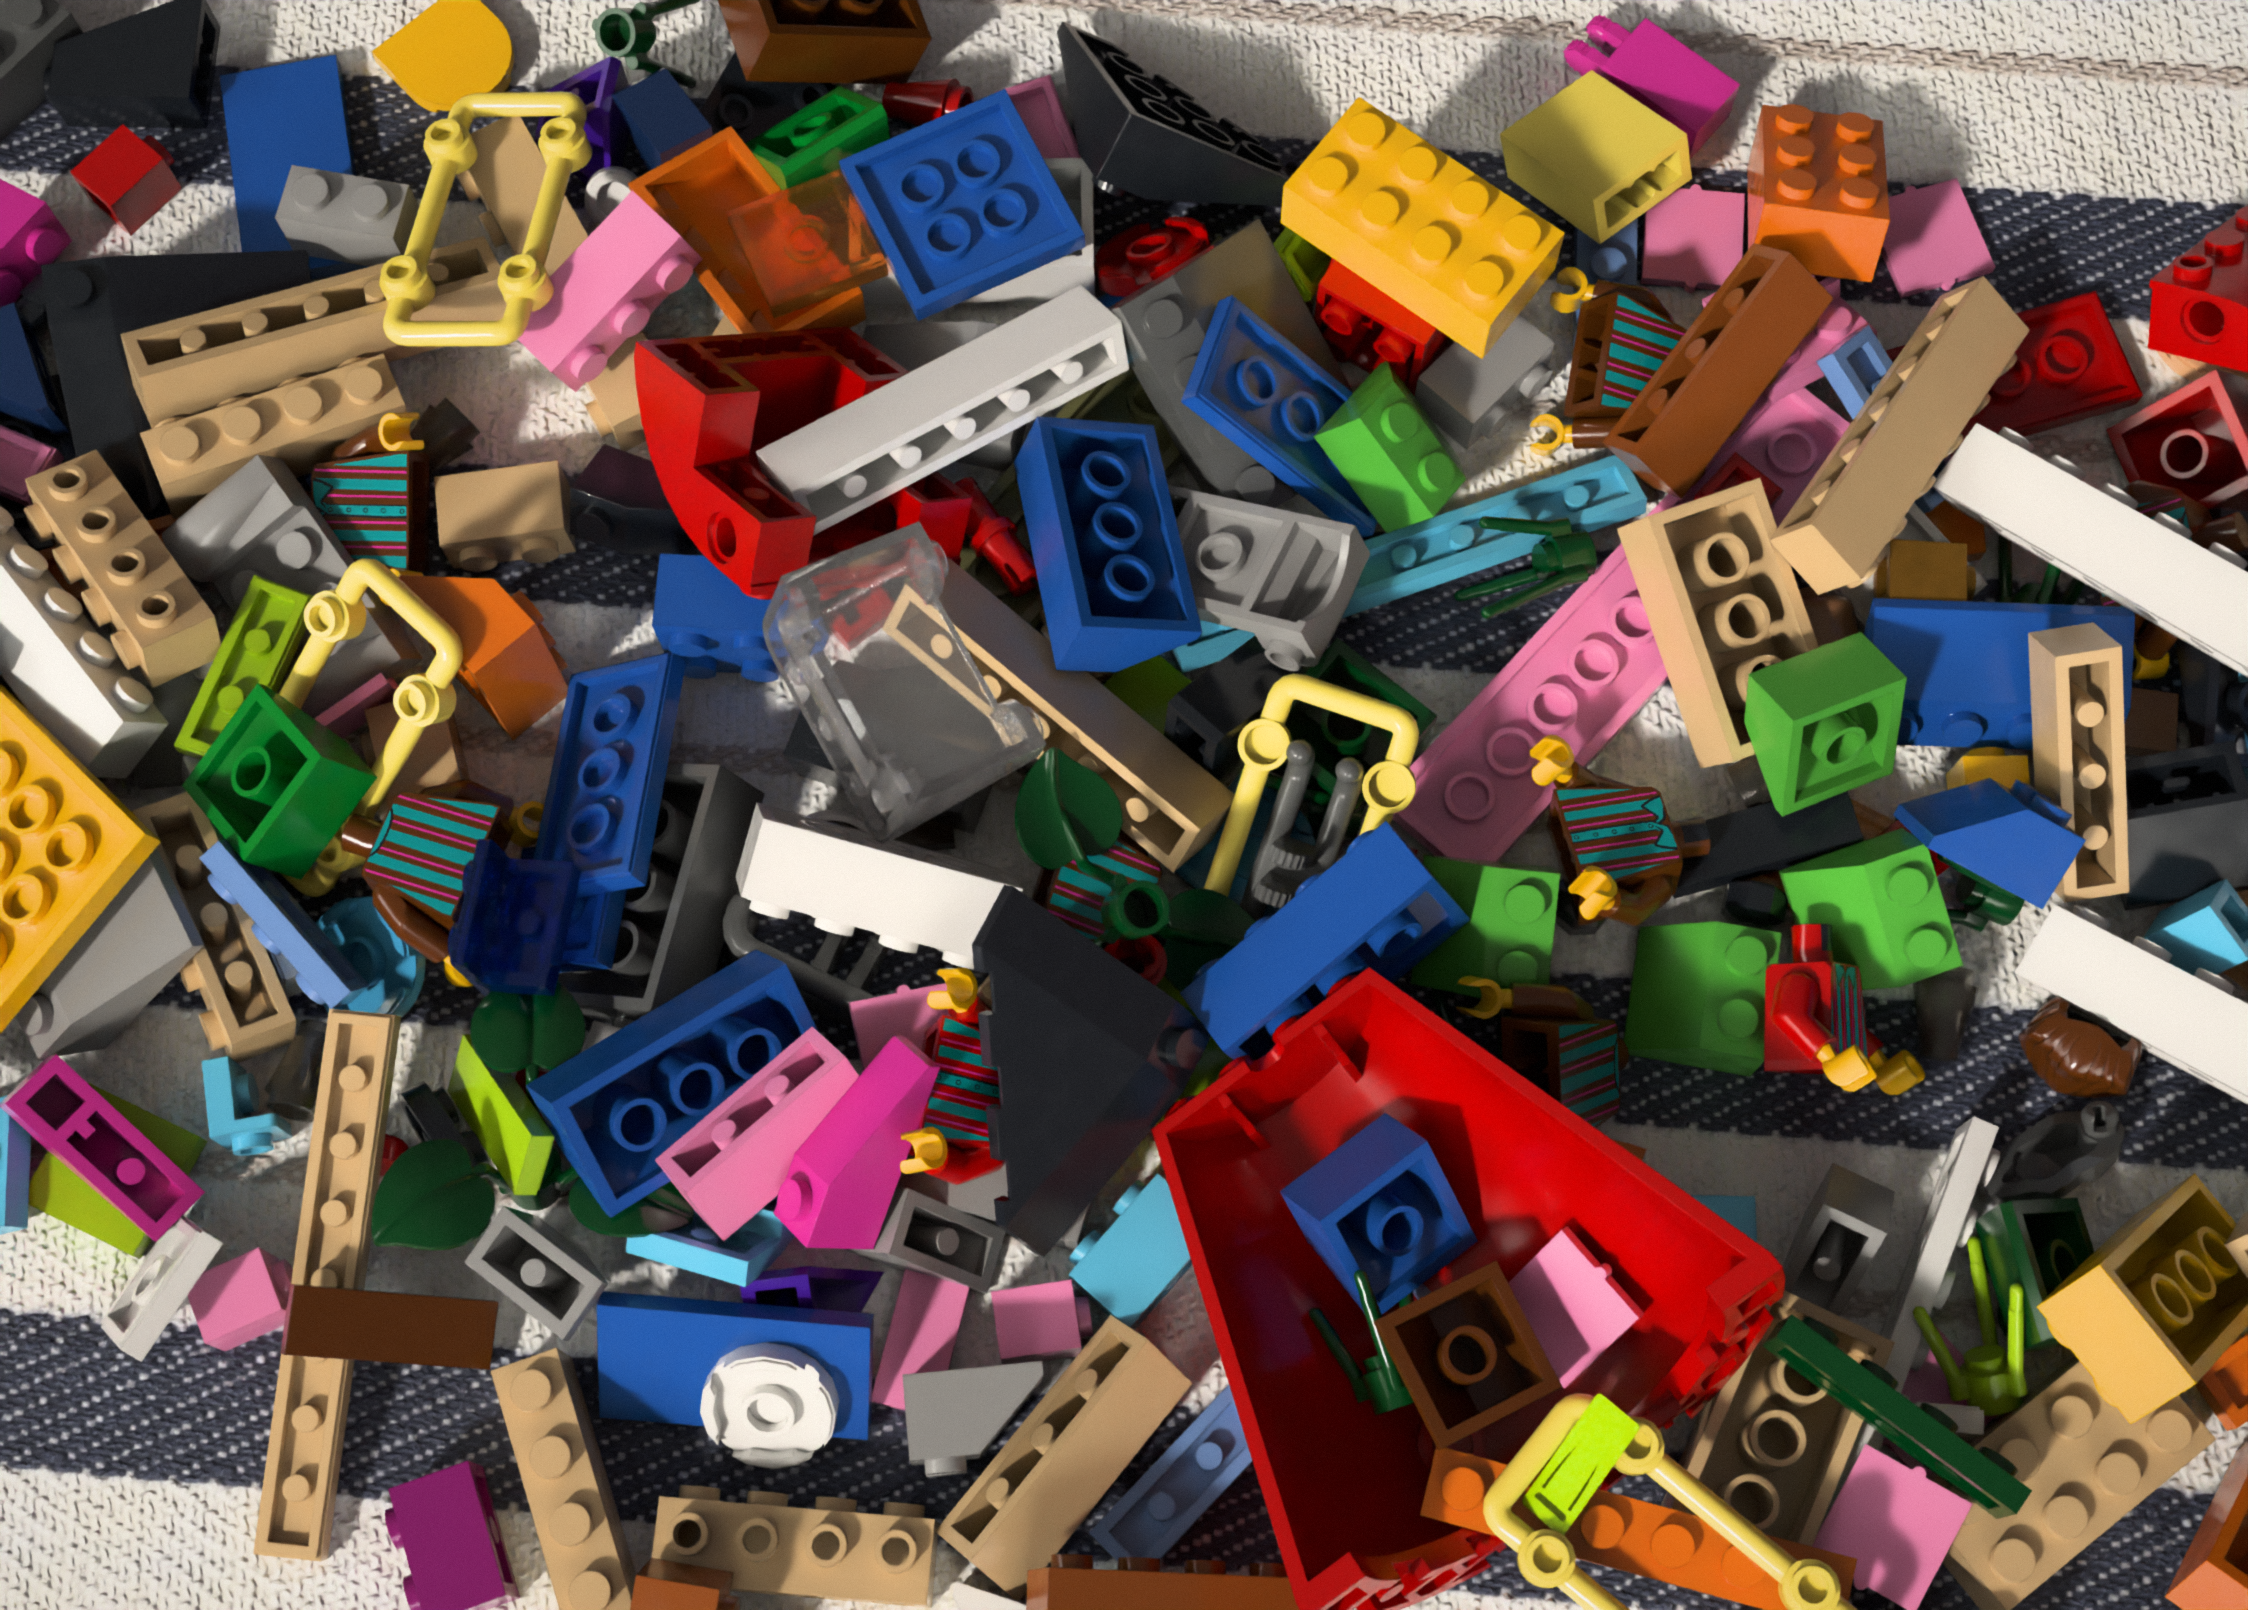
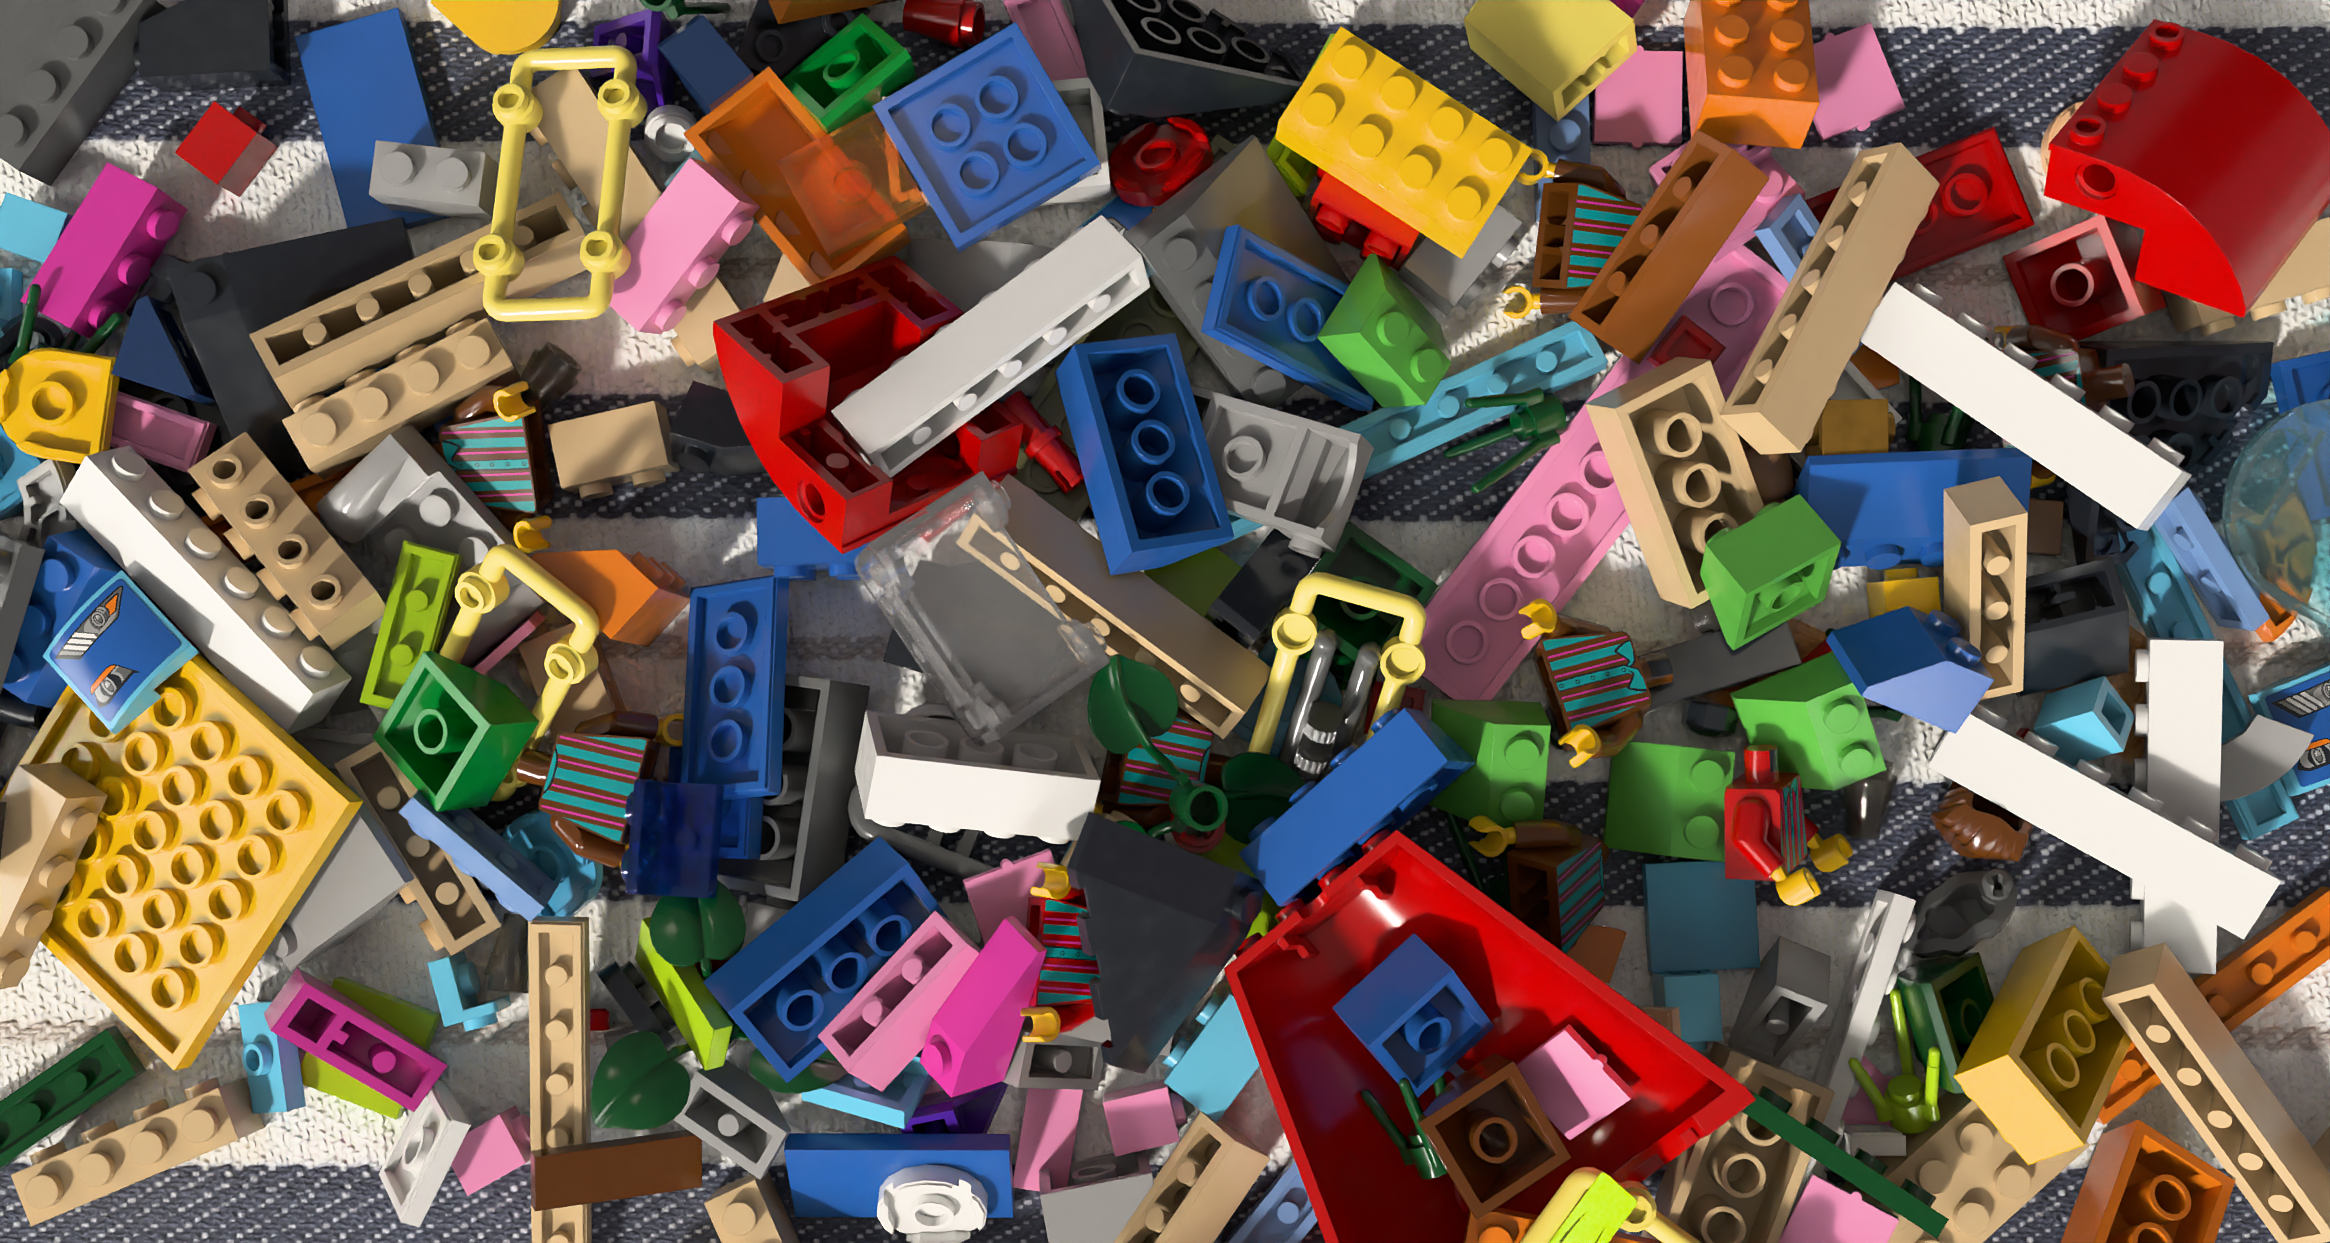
camera: 10 degrees left, 15 degrees up
(1739, 1136) = (1698, 917): none -> dark azure tile

